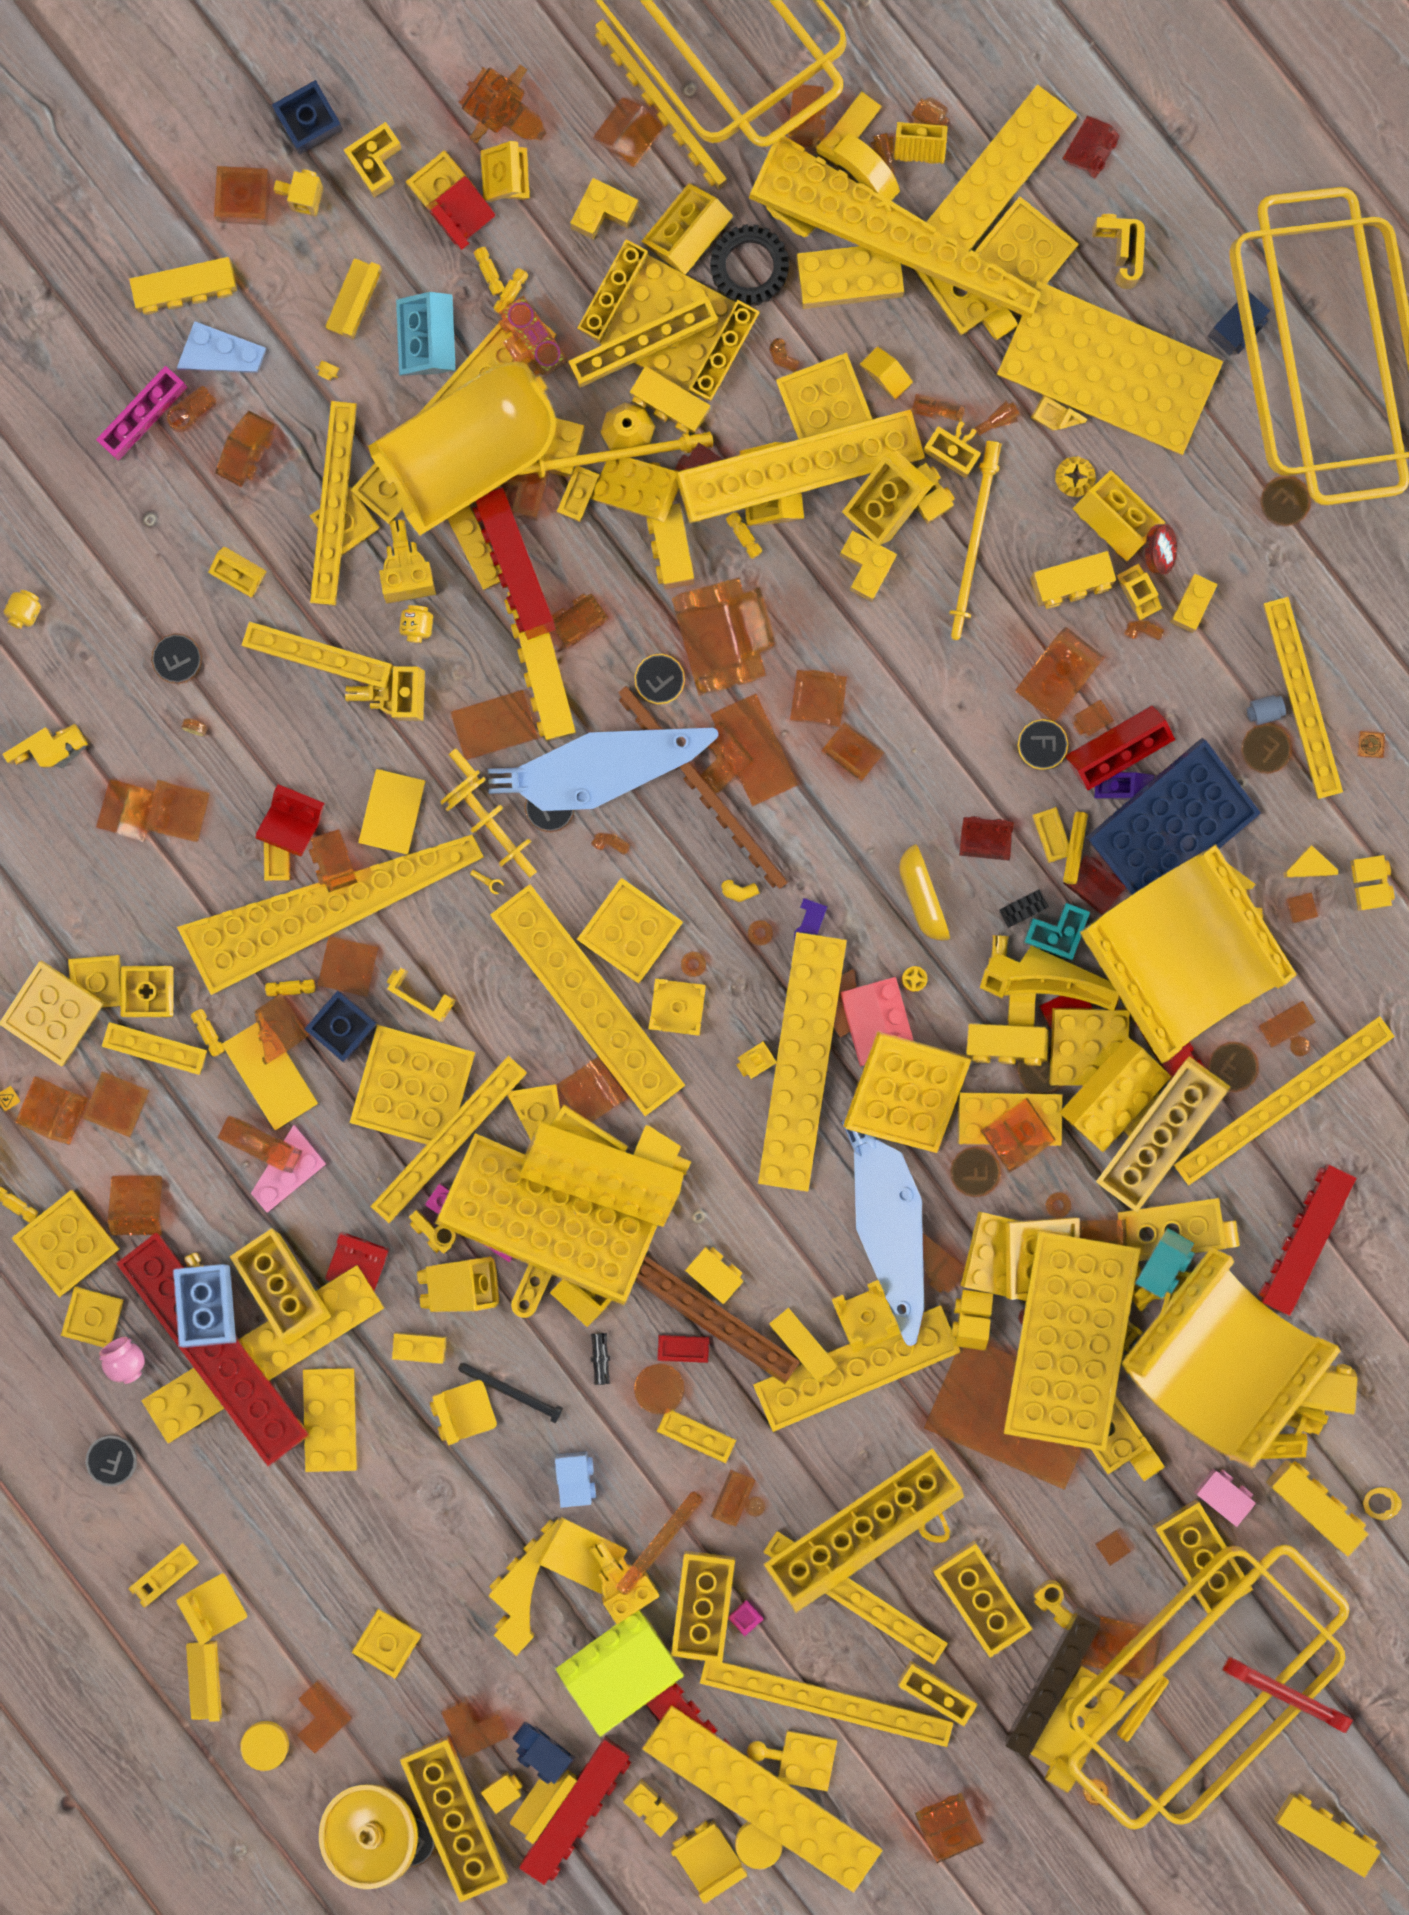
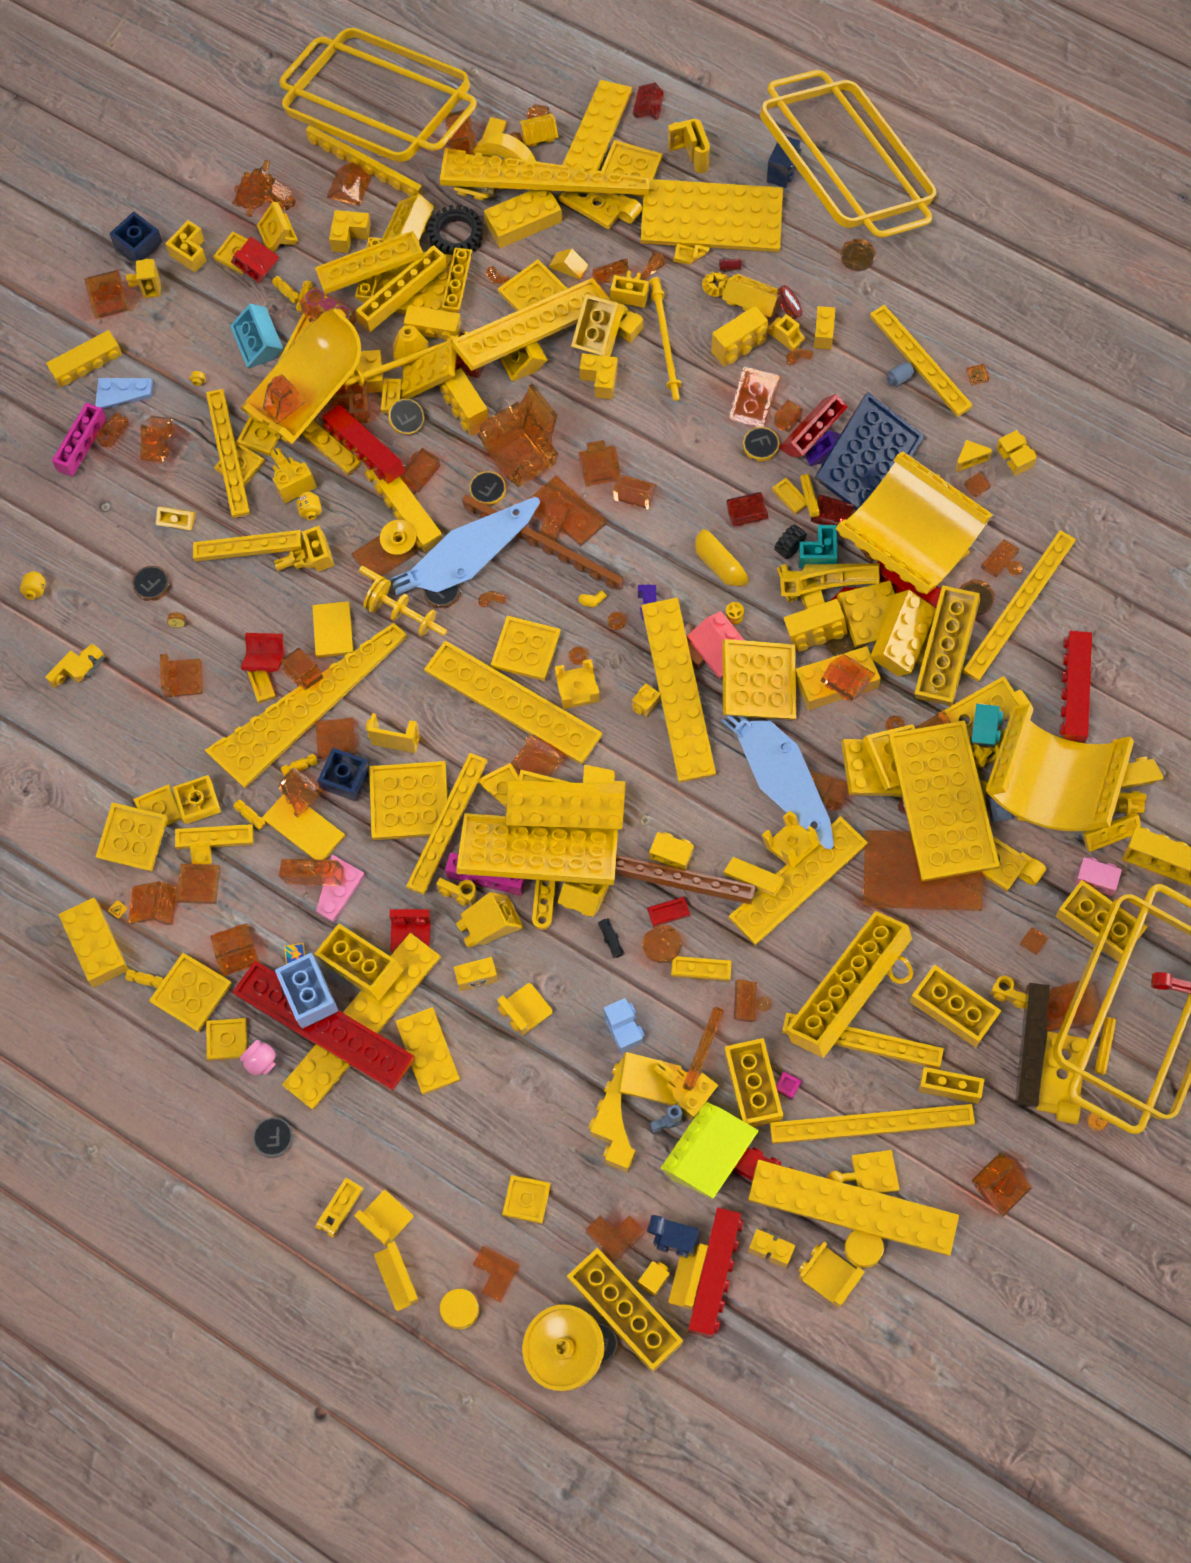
camera: 15 degrees left, 20 degrees down
(125, 810) = (144, 688): clear orange slope -> none
(131, 1066) = (201, 853): none -> yellow plate
(208, 1239) = (294, 952): none -> tile
(353, 298) = (201, 332): yellow panel -> none
(426, 465) = (281, 399): none -> clear orange slope
(487, 881) = (416, 651): yellow hand -> none
(504, 716) = (392, 532): none -> yellow dish
(512, 1392) = (556, 984): black bar -> none
(586, 535) = (405, 416): none -> black tile
(591, 1612) = (670, 1120): none -> sand blue bar
(611, 288) = (369, 262): none -> yellow tile
(743, 535) = (511, 385): yellow axle -> none
(973, 1319) = (867, 815): yellow piece -> none
(975, 1171) = (827, 723): clear orange tile -> none
(1105, 454) = (729, 264): none -> dark red pin
(1266, 748) = (910, 399): clear orange tile -> none

